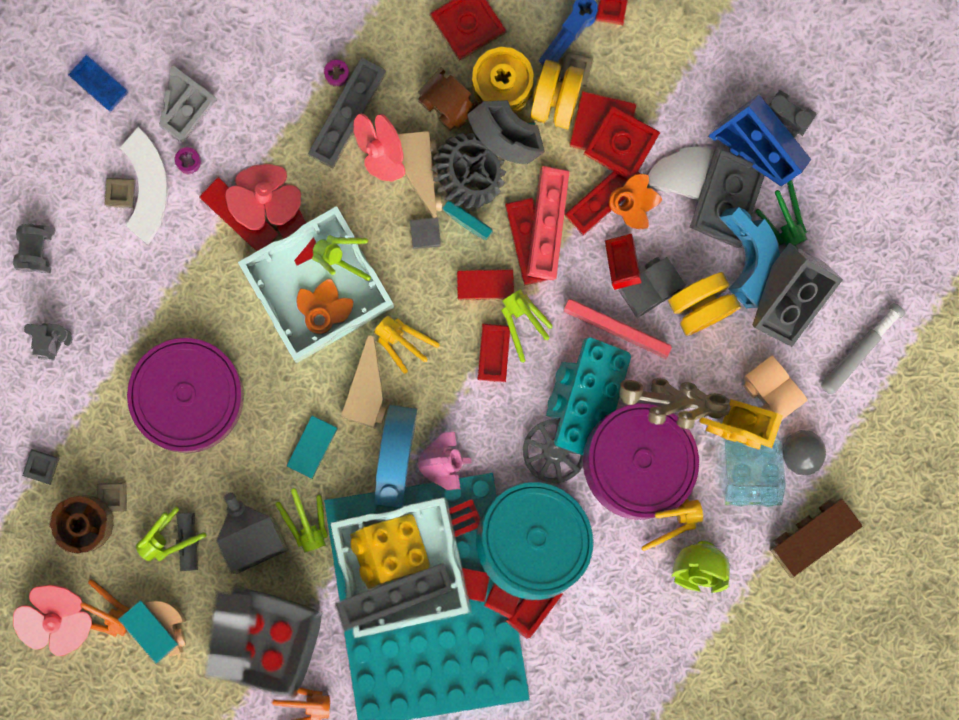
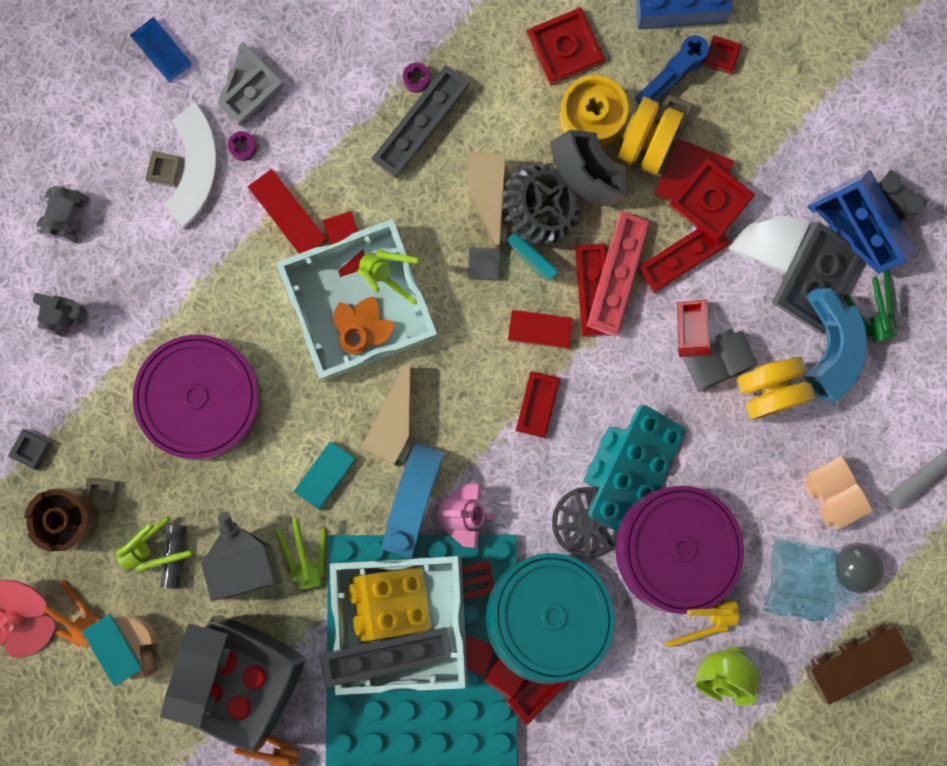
camera: 10 degrees right, 0 degrees up
(254, 196) = (306, 193): coral piece -> none
(383, 149) = (452, 163): coral piece -> none
(390, 332) = (429, 364): yellow plant -> none
(448, 99) = (531, 123): reddish brown brick -> none
(518, 305) = (574, 357): lime plant -> none
(617, 328) = (676, 400): coral tile -> none
(637, 201) = (718, 266): orange plate -> none
(676, 400) = (729, 489): dark tan plant -> none
(746, 425) = (802, 528): yellow bracket -> none
(794, 294) = (875, 393): dark grey slope -> none

